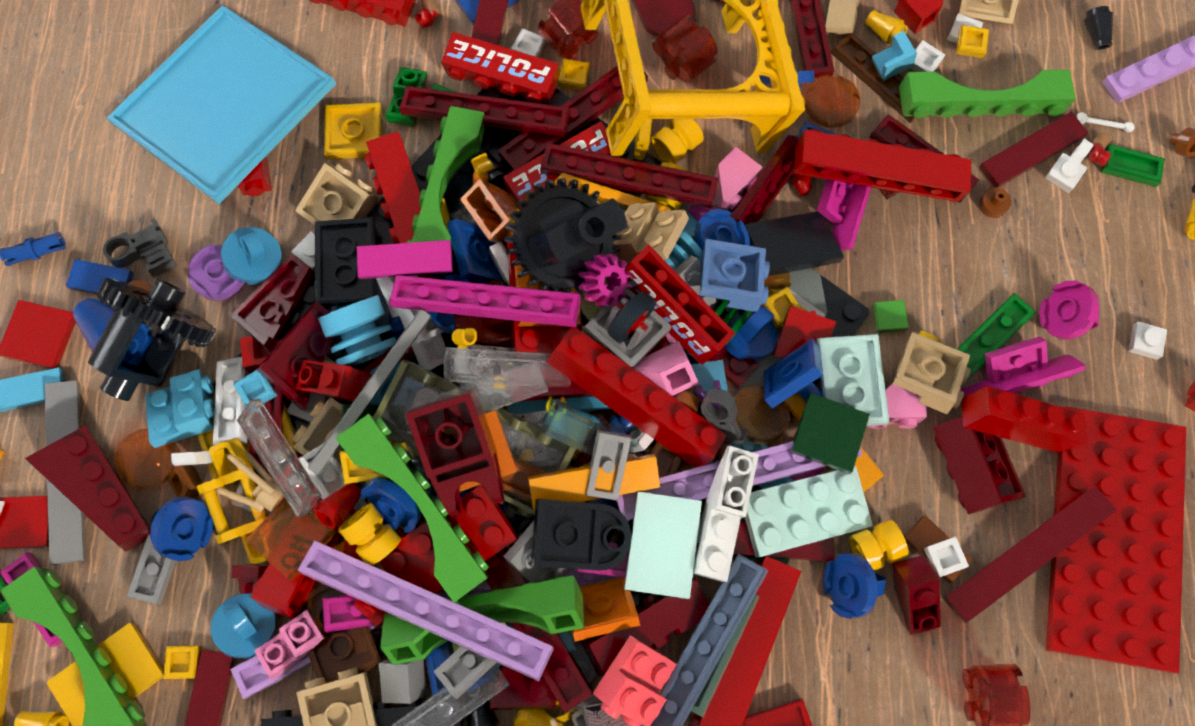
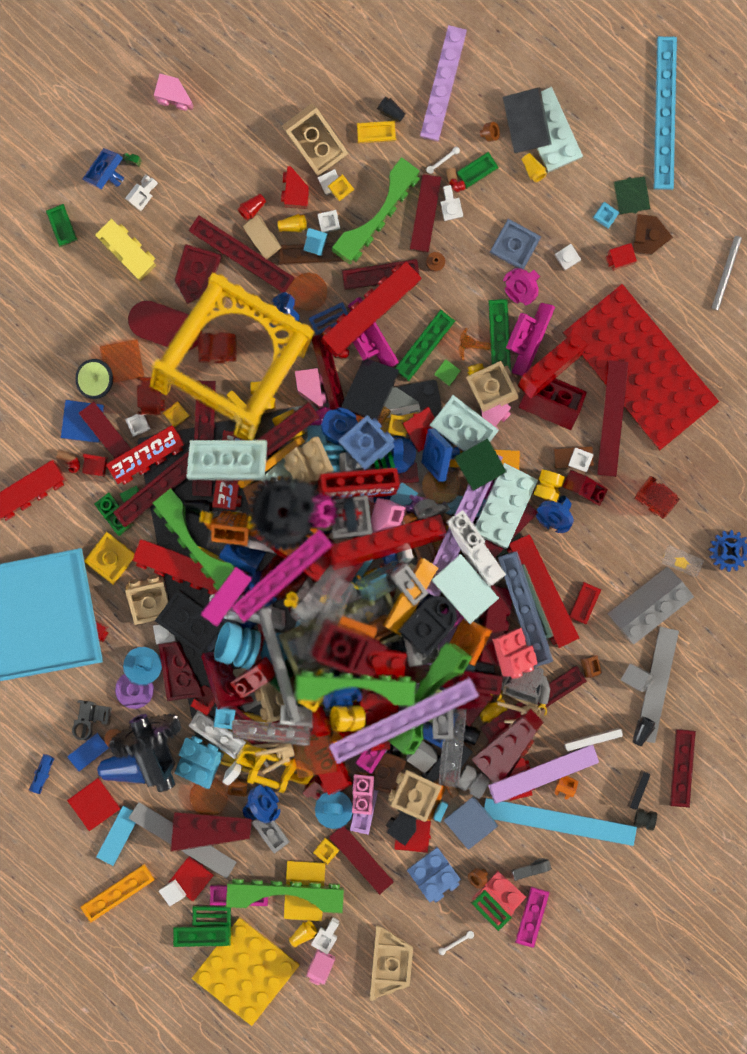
camera: 50 degrees left, 15 degrees up
(441, 34) = (94, 465): none -> red panel
(570, 140) = (227, 460): none -> light aqua plate
(896, 267) = (425, 345): none -> green tile
(947, 305) = (468, 342): none -> clear orange plant
(1061, 34) = (376, 132): none -> yellow tile
(1102, 268) = (515, 244): none -> sand blue tile

